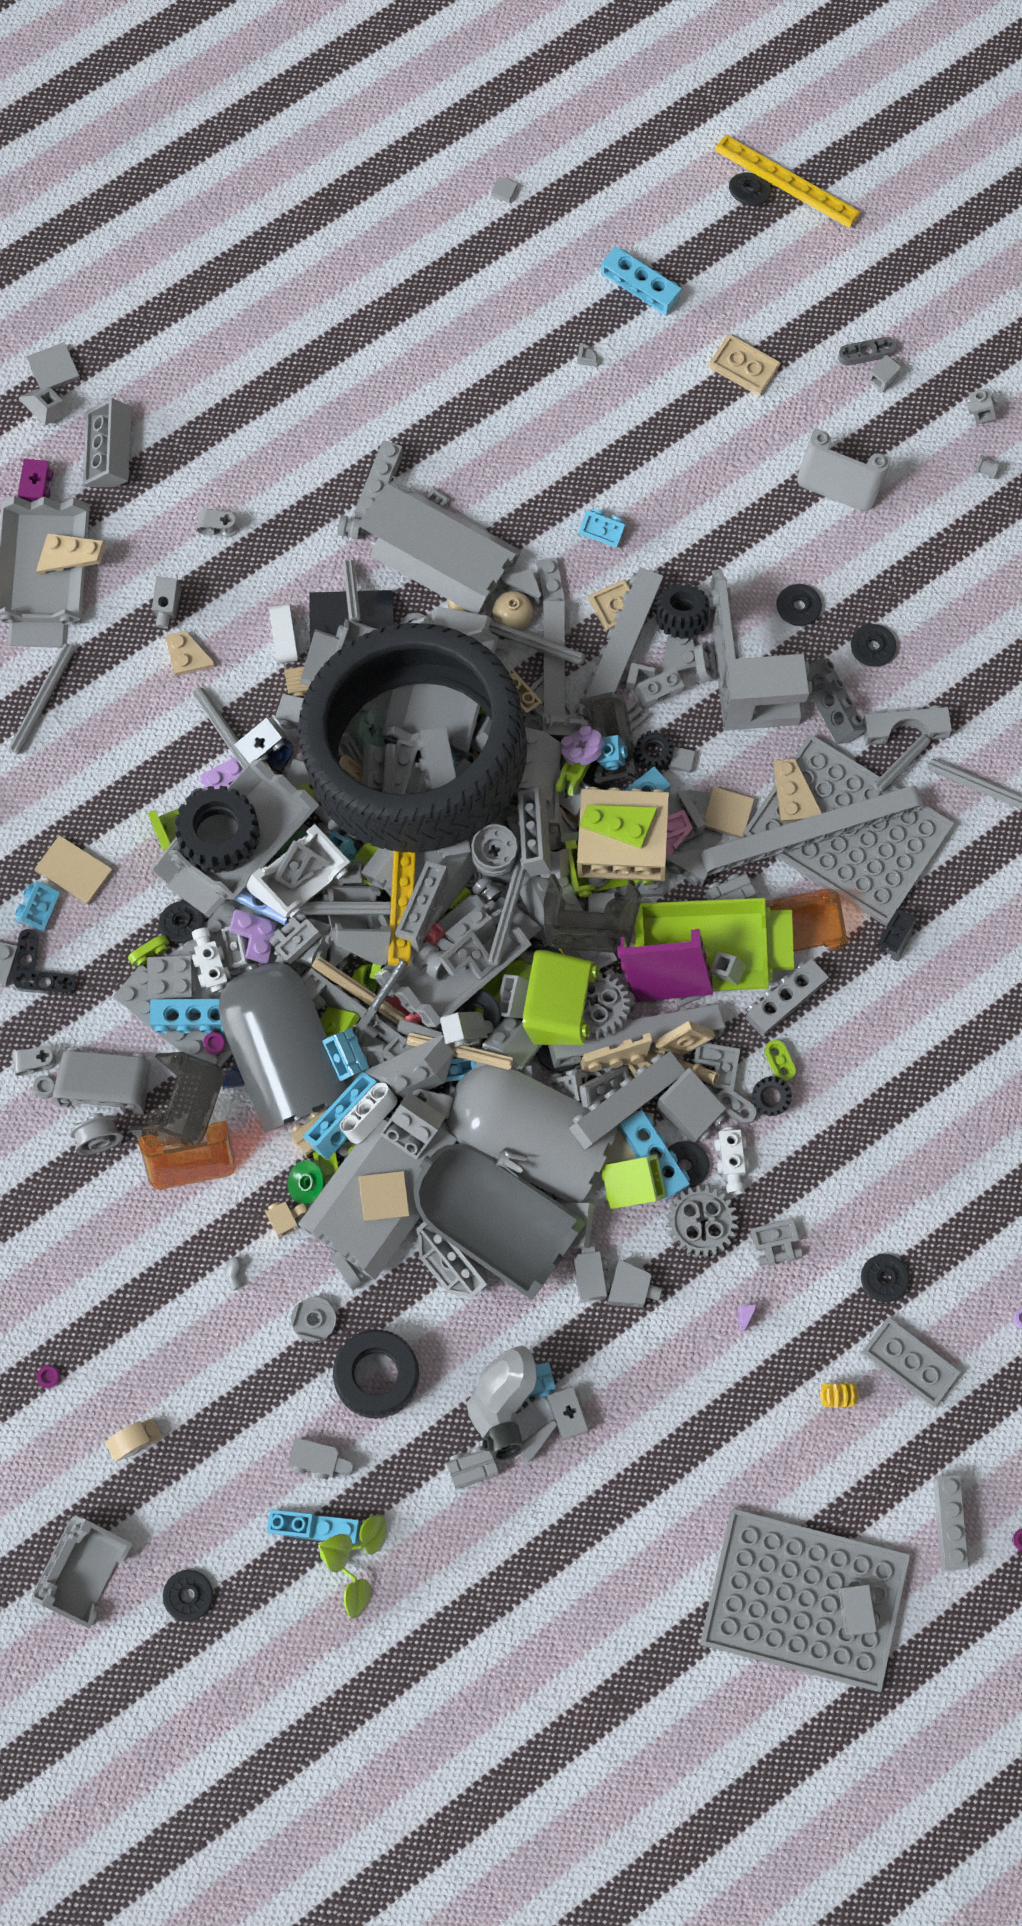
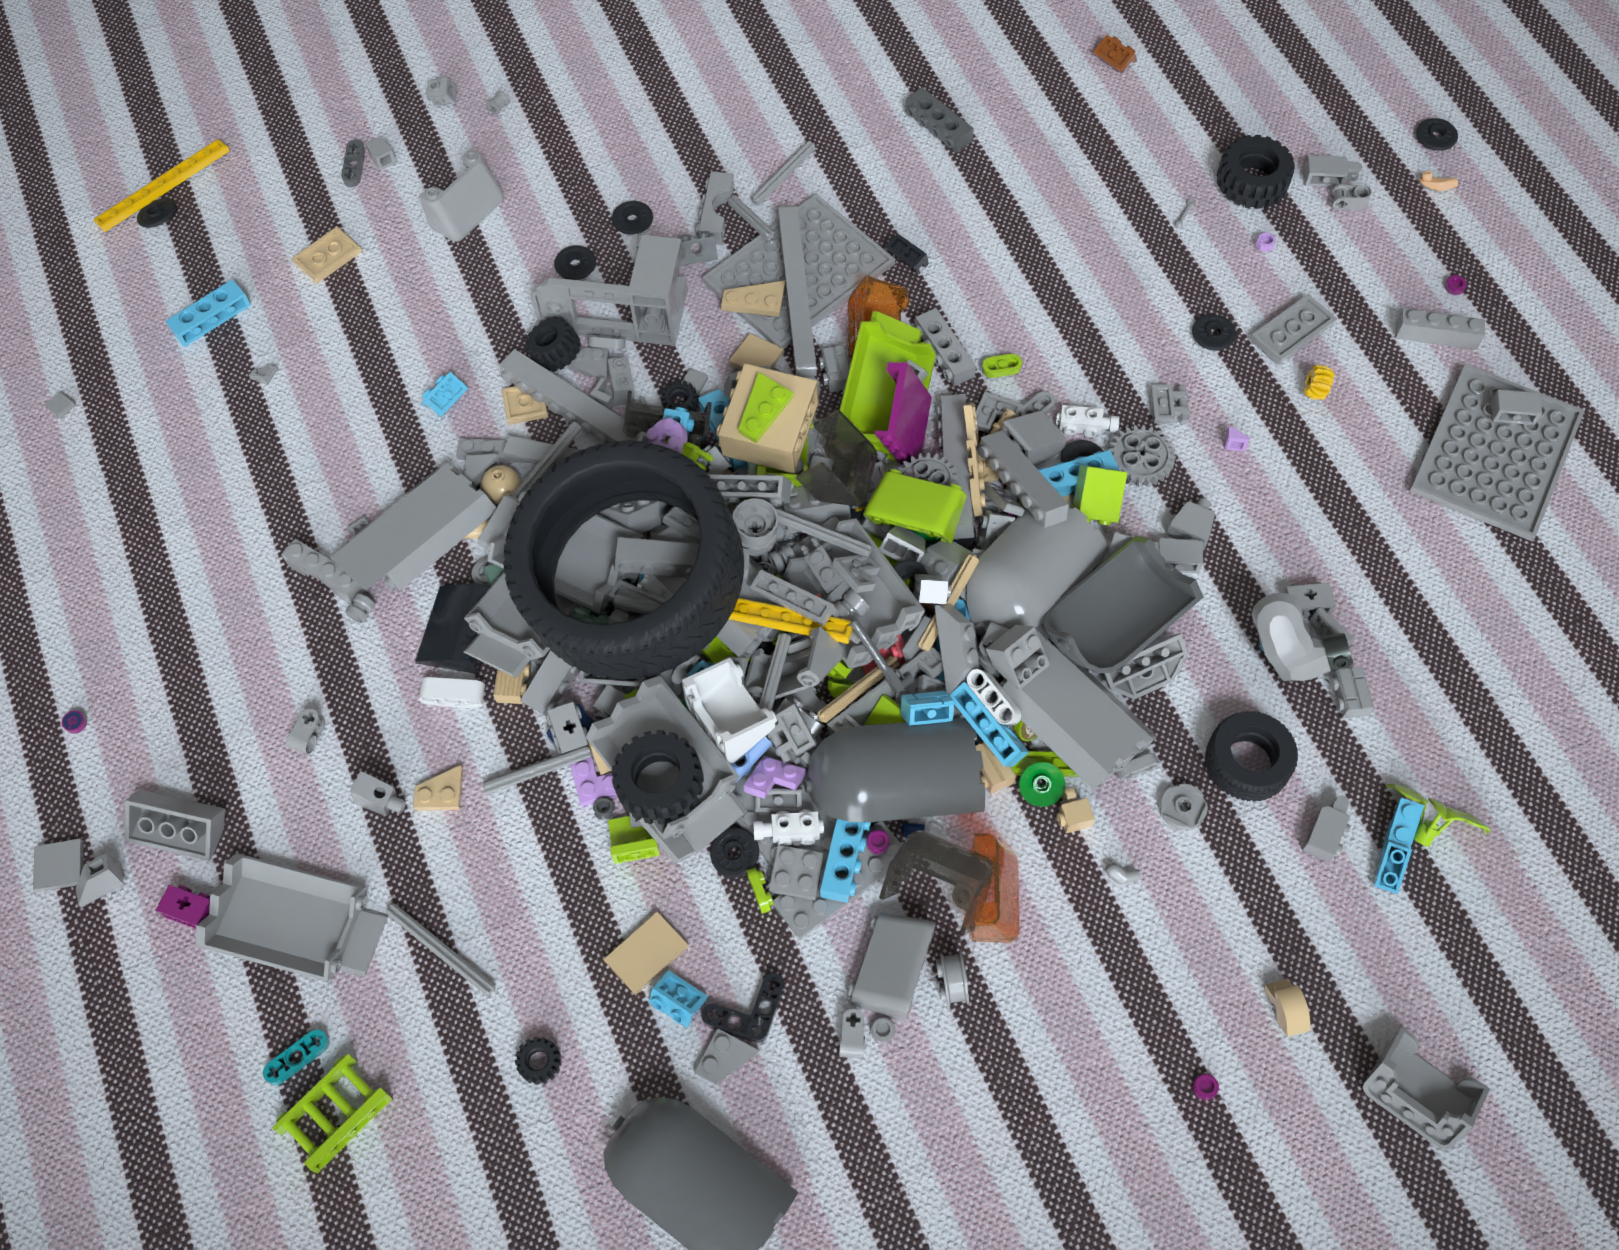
camera: 70 degrees left, 10 degrees down
(68, 551) = (283, 885): tan wing -> none
(185, 328) = (74, 722): none -> tile
(202, 1595) = (1448, 999): black wheel -> none
(298, 865) = (719, 707): light grey wing -> none
(351, 591) = (431, 616): light grey axle -> none
(383, 1196) = (1082, 700): tan tile -> none
(505, 1162) = (1064, 585): light grey piece -> none
(781, 1086) = (1041, 367): black tyre -> none

